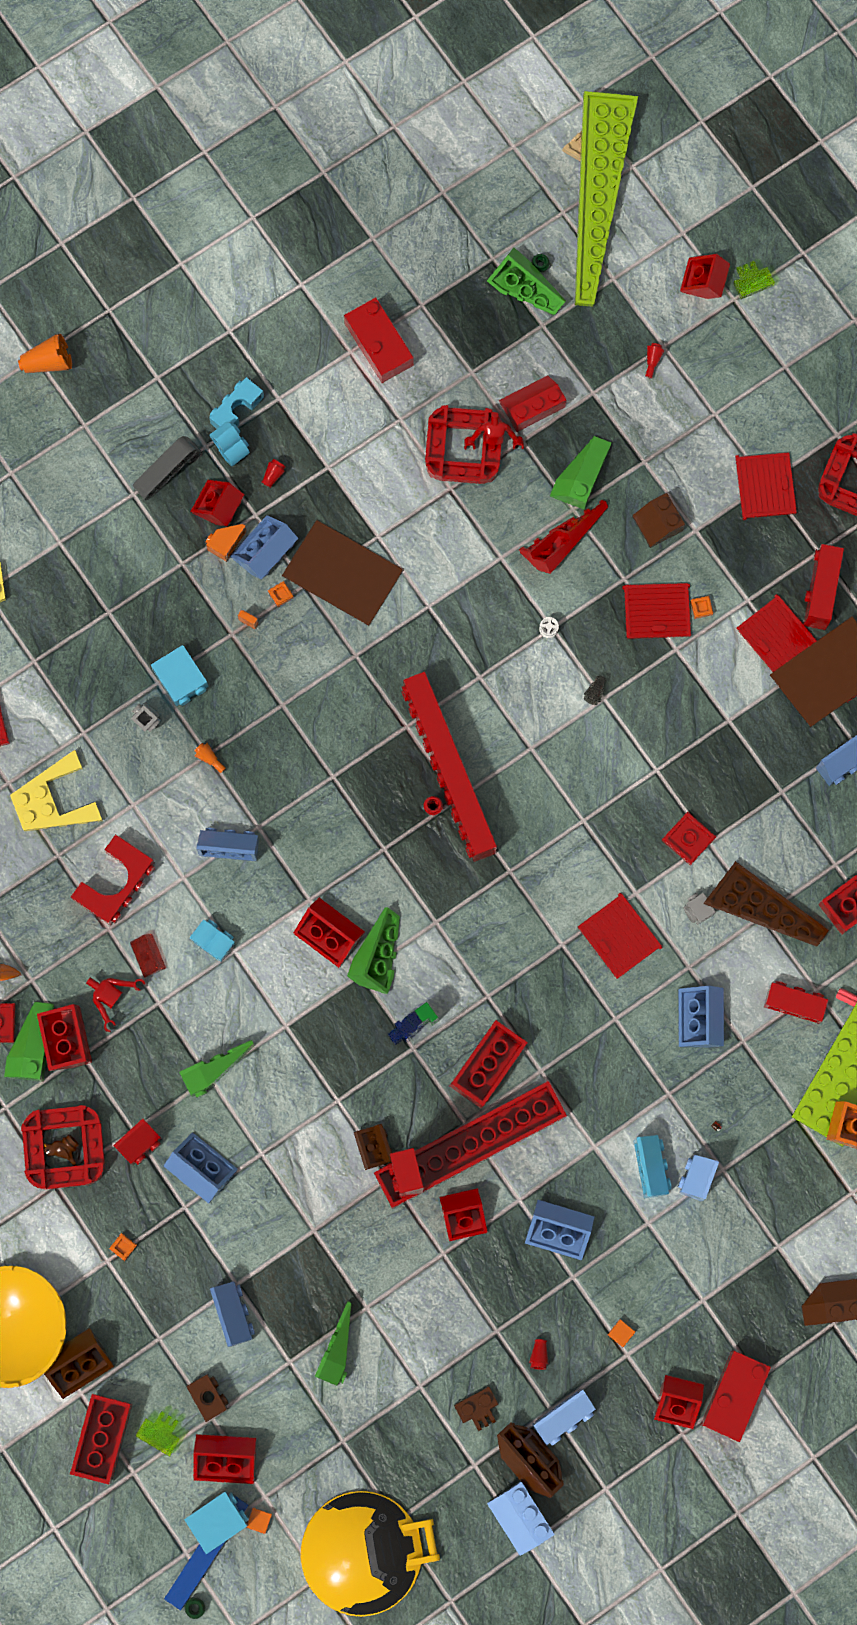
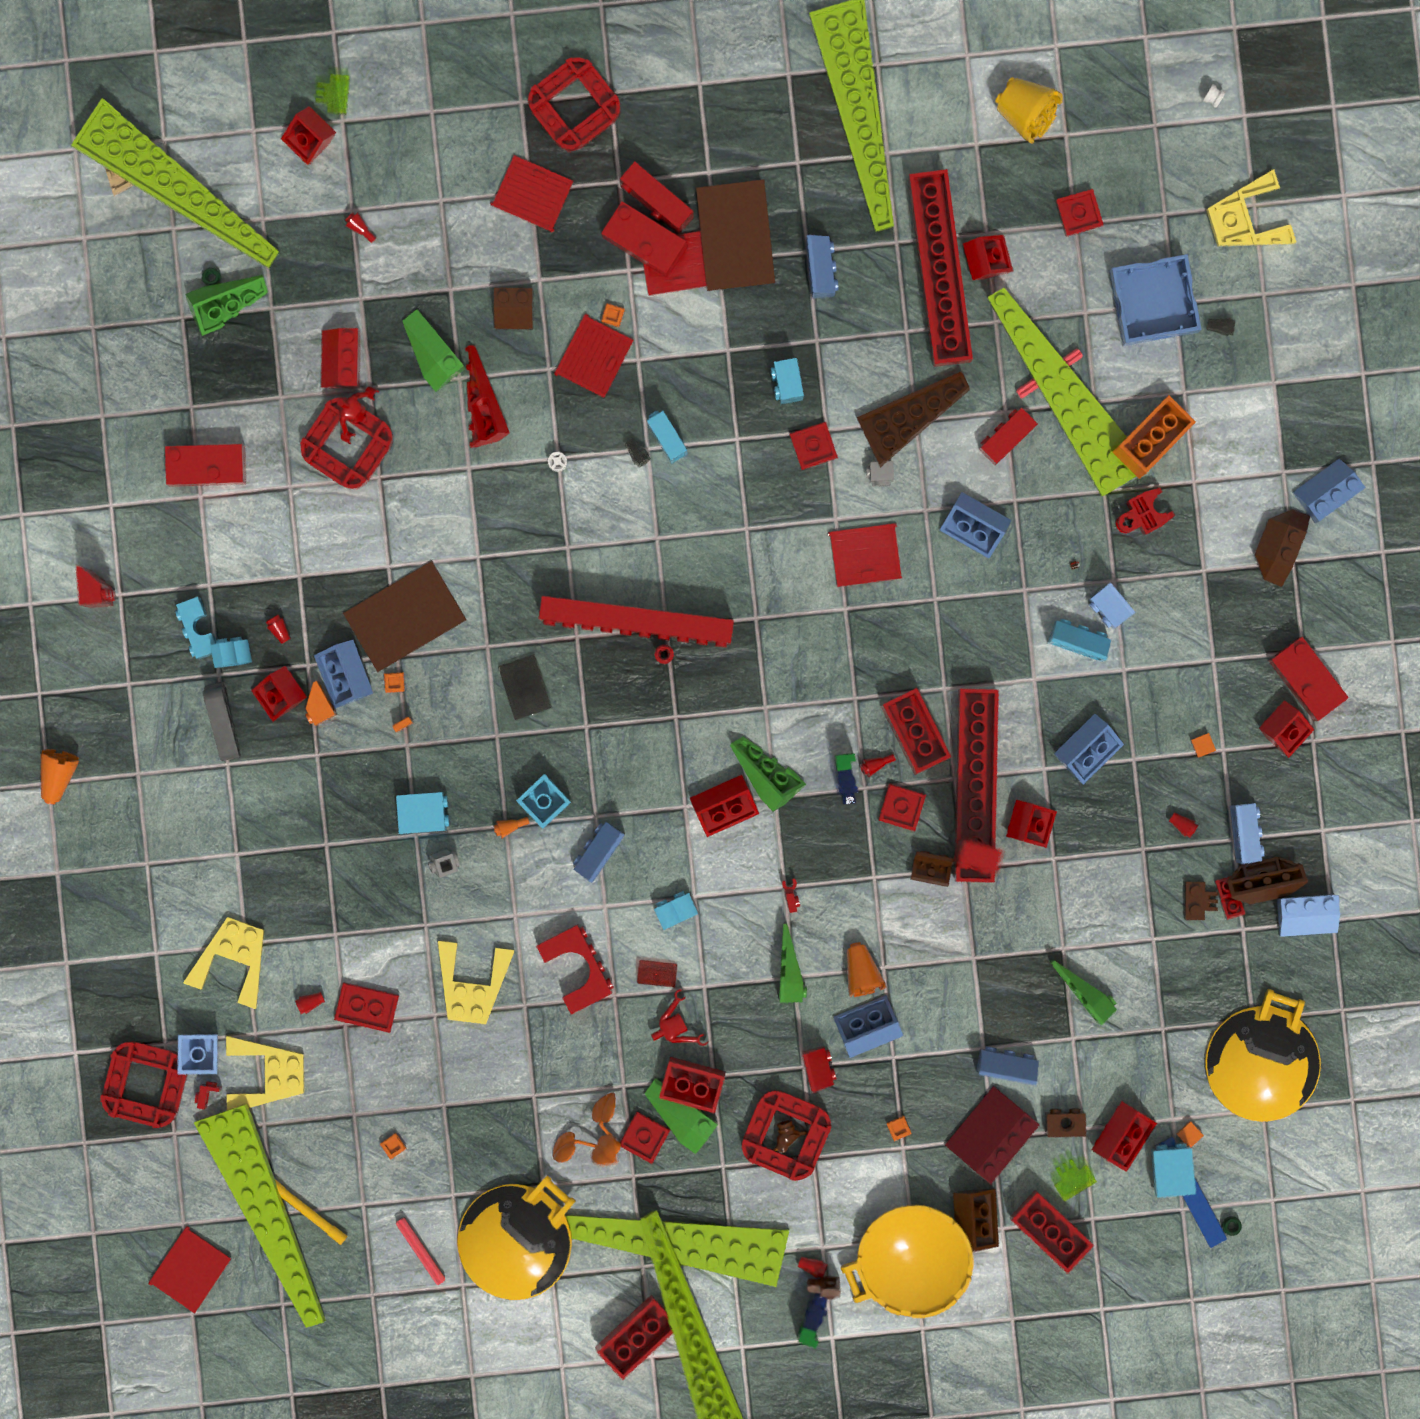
camera: 55 degrees left, 10 degrees up
(161, 1335) = (992, 1135): none -> dark red slope
(220, 301) = (93, 590): none -> red slope
(246, 773) = (543, 801): none -> medium azure brick
(246, 1135) = (862, 971): none -> orange cone
(277, 1037) = (793, 901): none -> red plate
(337, 705) = (525, 687): none -> clear smoke slope
(414, 1090) = (902, 807): none -> red tile
(436, 1043) = (872, 765): none -> red cone
(488, 1442) = (1231, 907): none -> red slope
(623, 706) = (666, 436): none -> medium azure brick
(732, 783) = (788, 381): none -> medium azure brick
(782, 596) = (644, 239): none -> red brick
(791, 1158) = (1142, 514): none -> red piece

